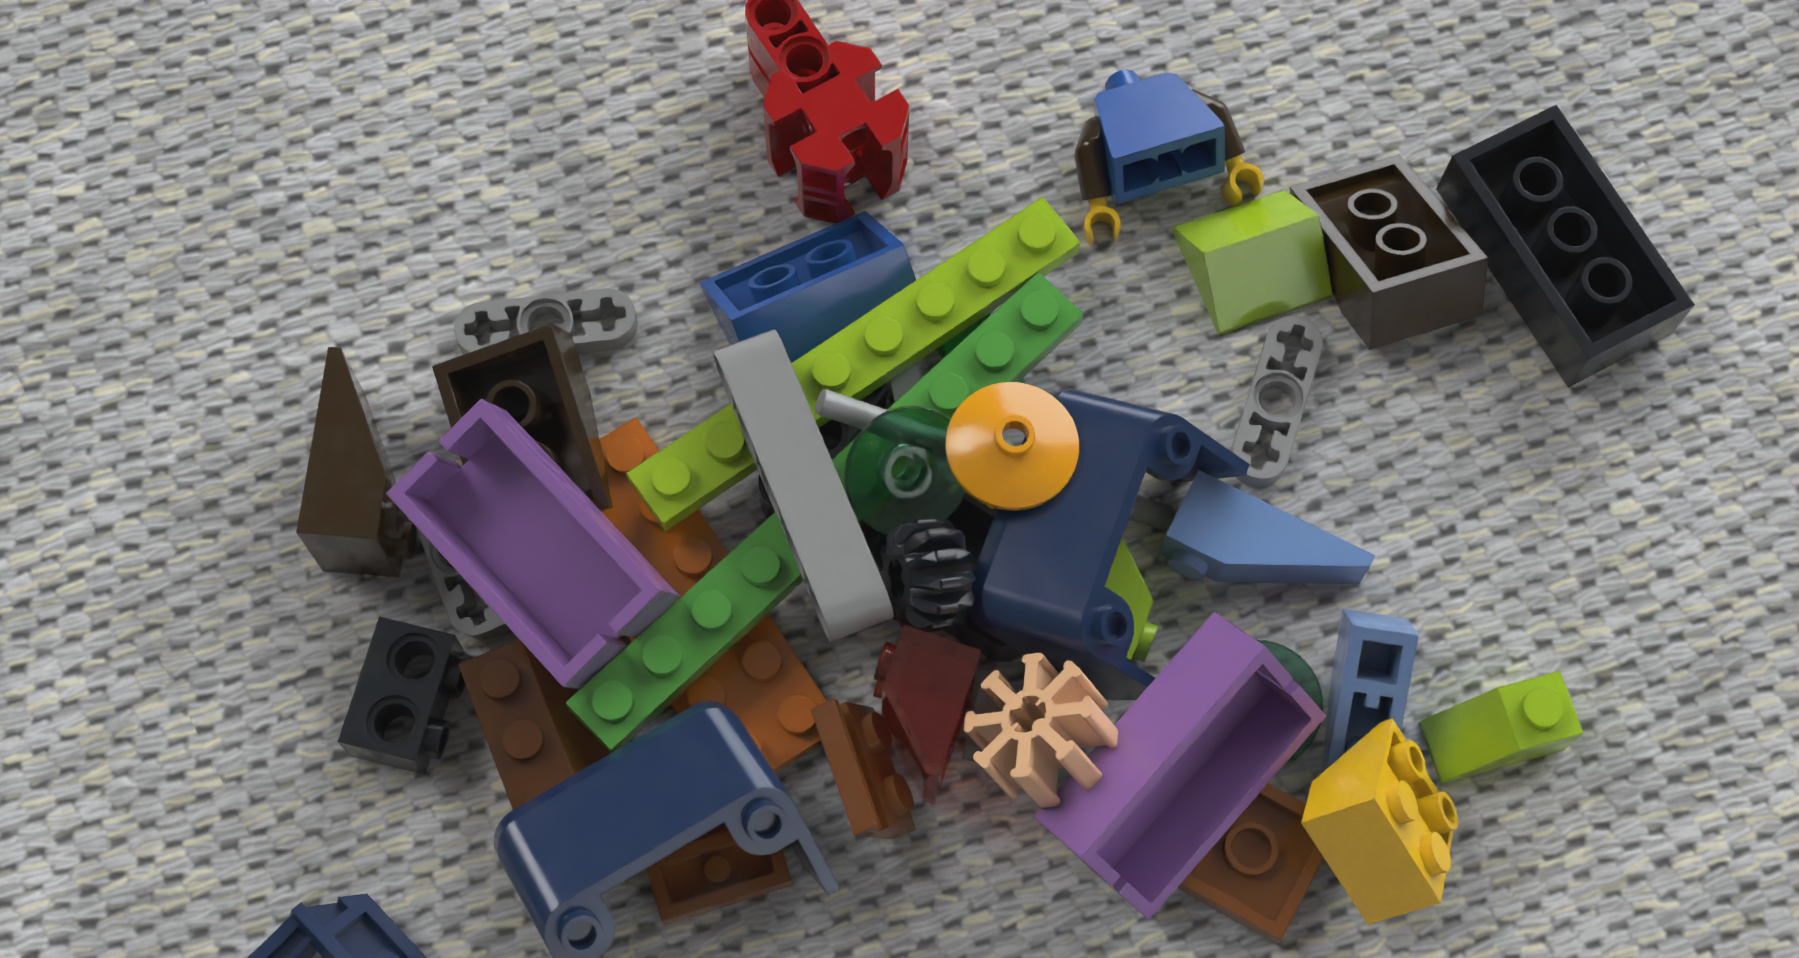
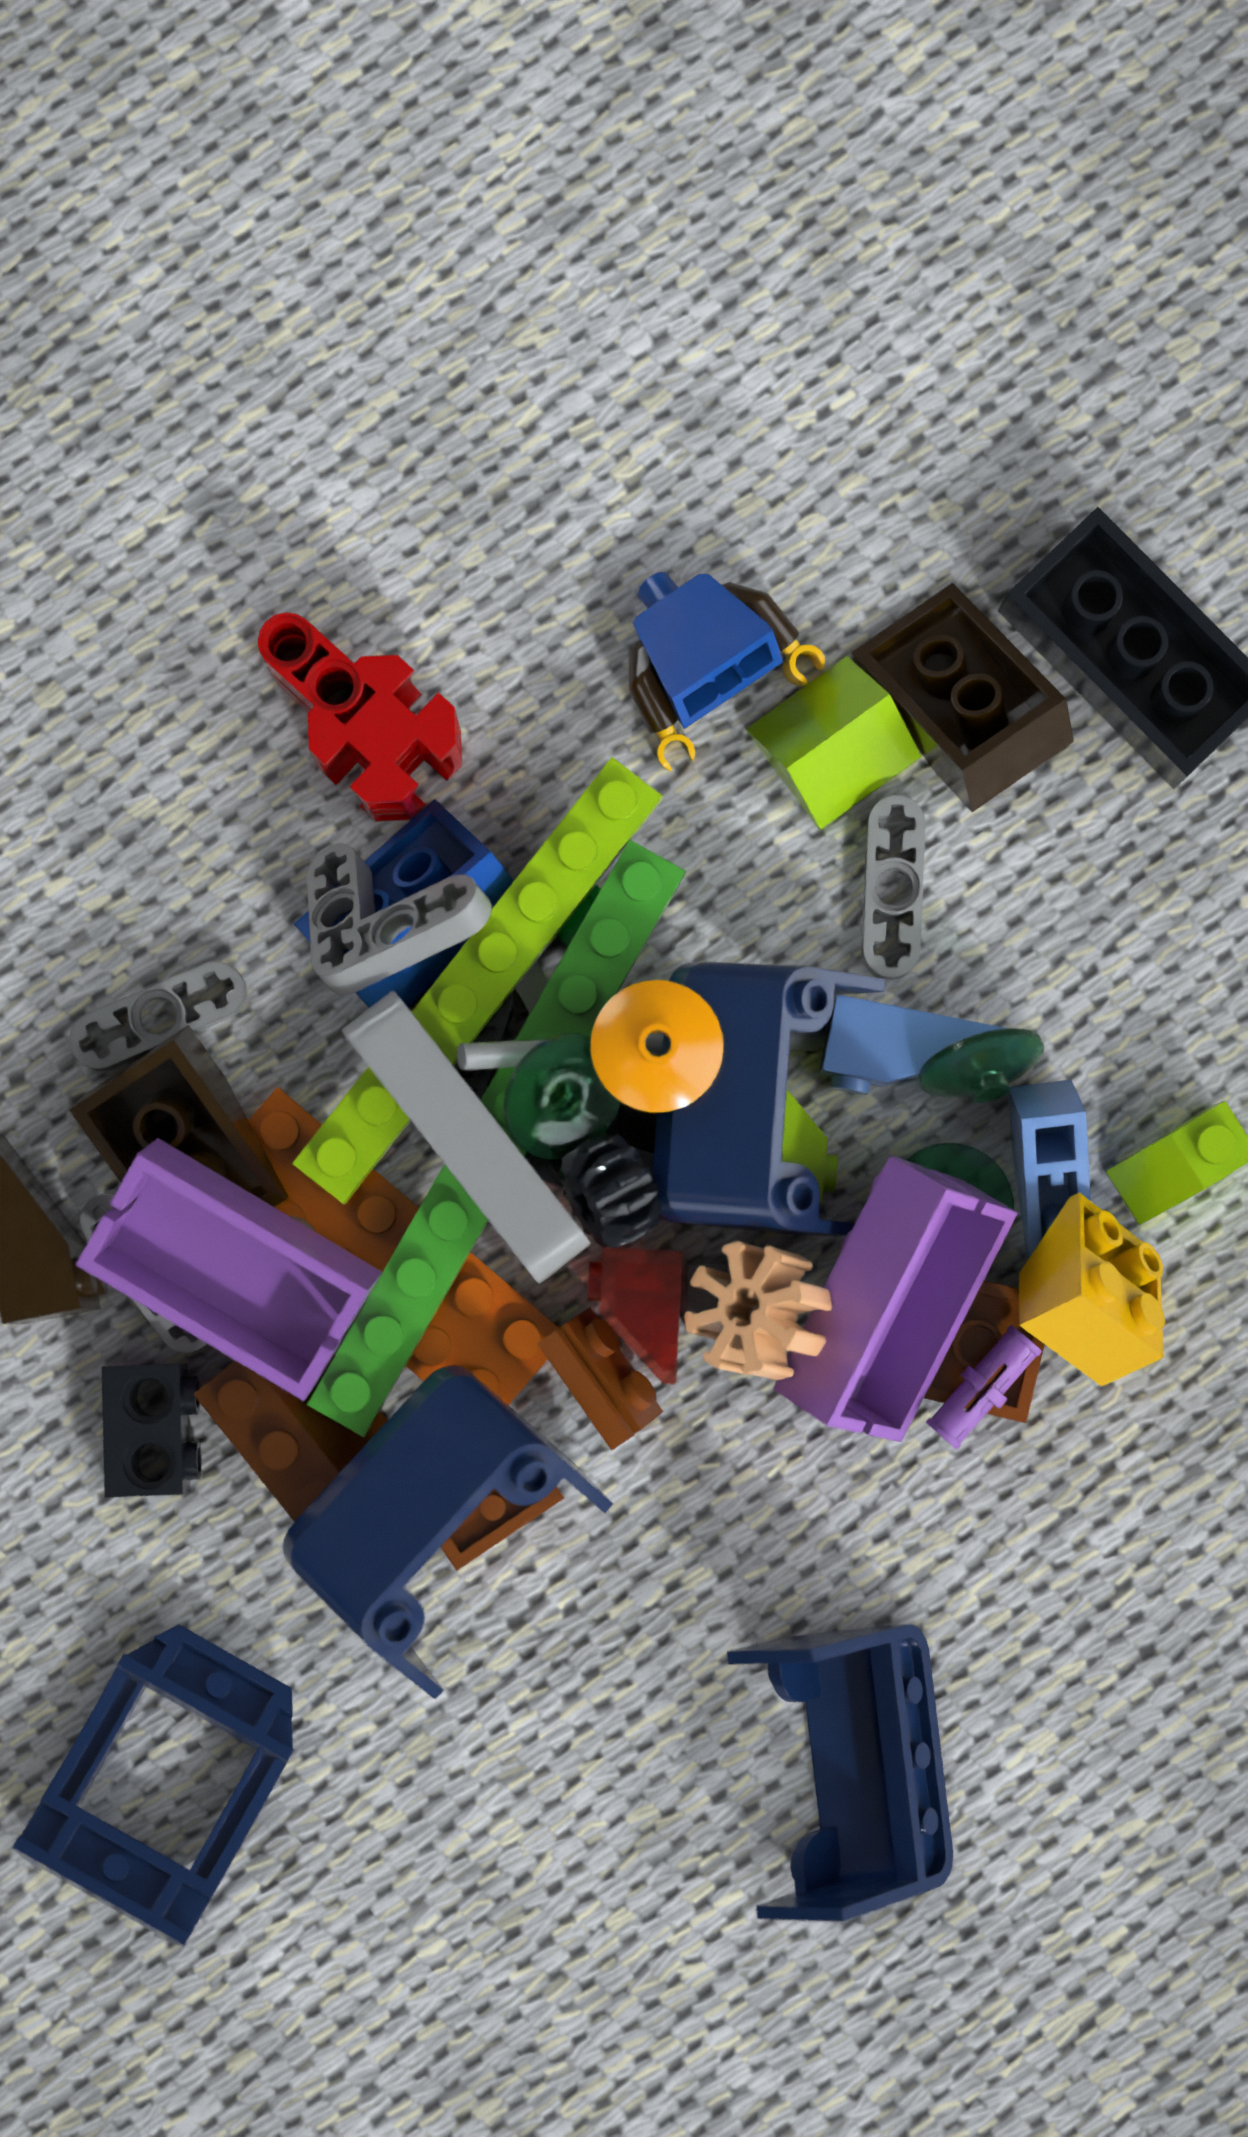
camera: 15 degrees left, 15 degrees up
(758, 286) = (437, 914): none -> light grey beam
(1285, 858) = (1015, 1354): none -> medium lavender pin
(1323, 572) = (982, 1064): none -> clear green dish

